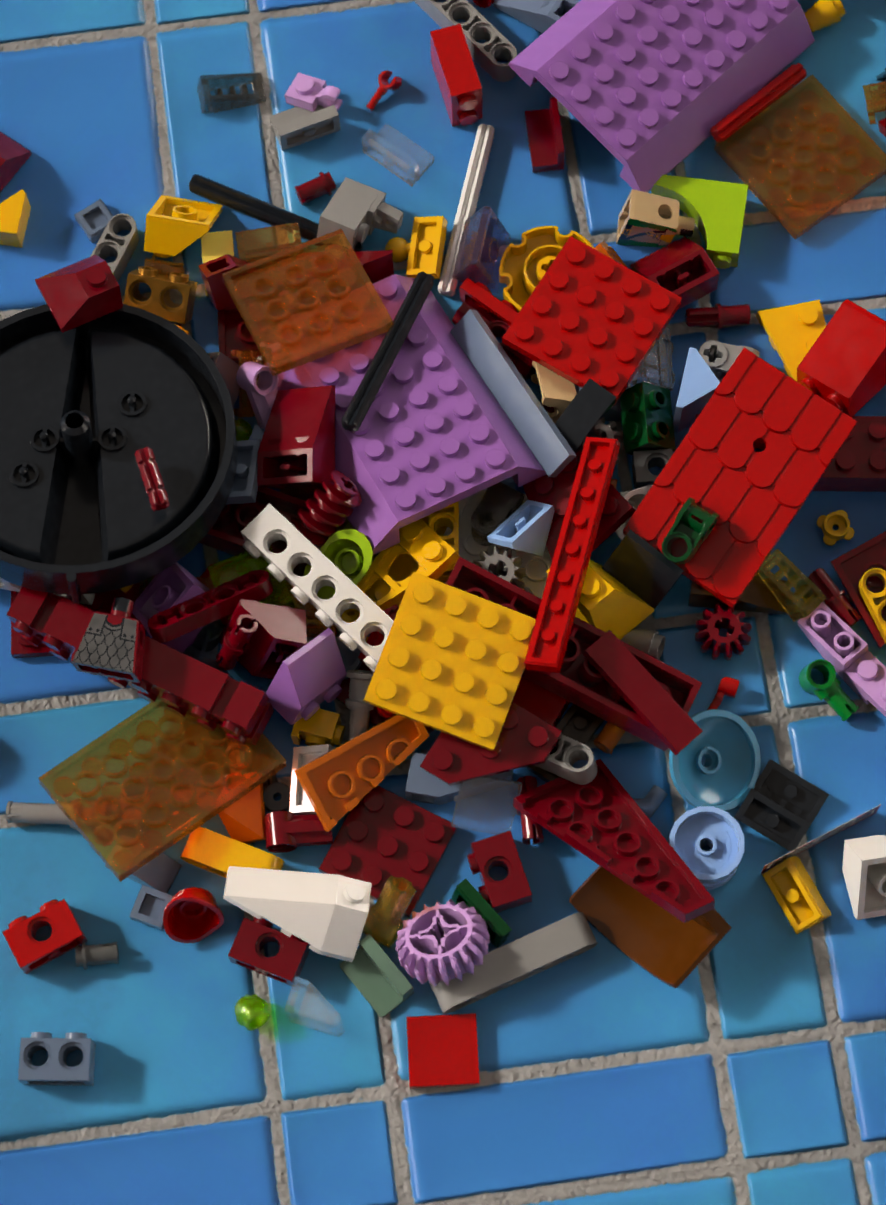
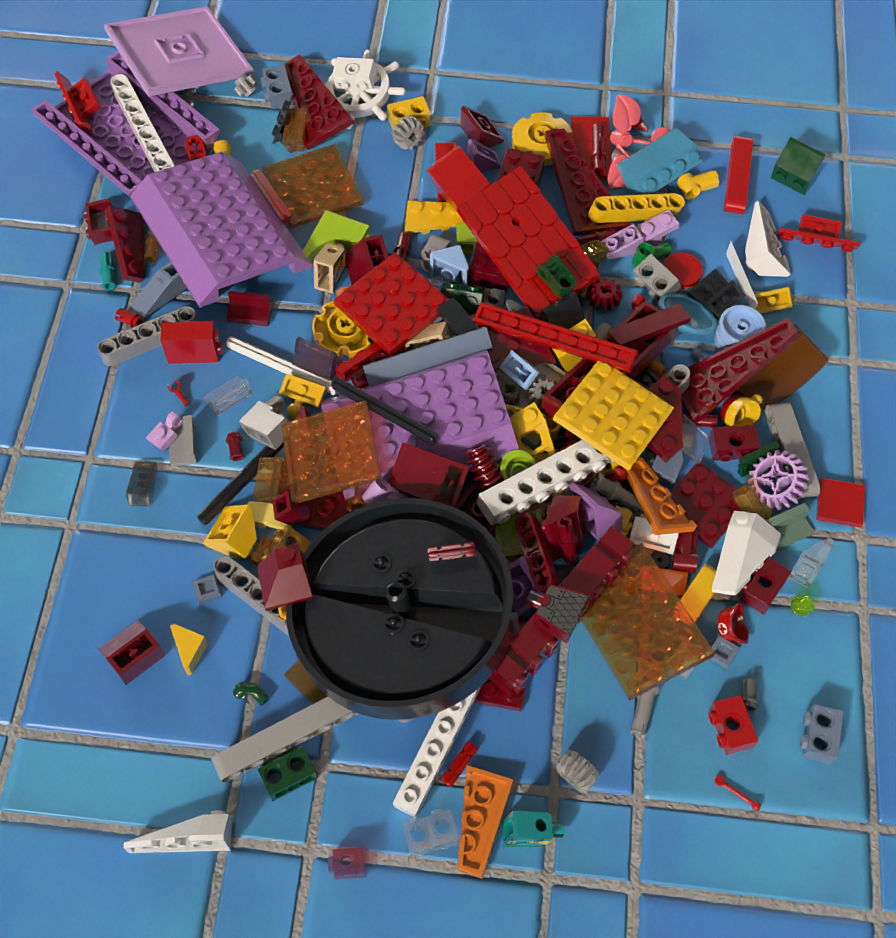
camera: 80 degrees left, 10 degrees down
(567, 870) = (741, 410): none -> yellow piece
(781, 707) = (660, 276): none -> light grey brick
(814, 745) = (684, 268): none -> red tile

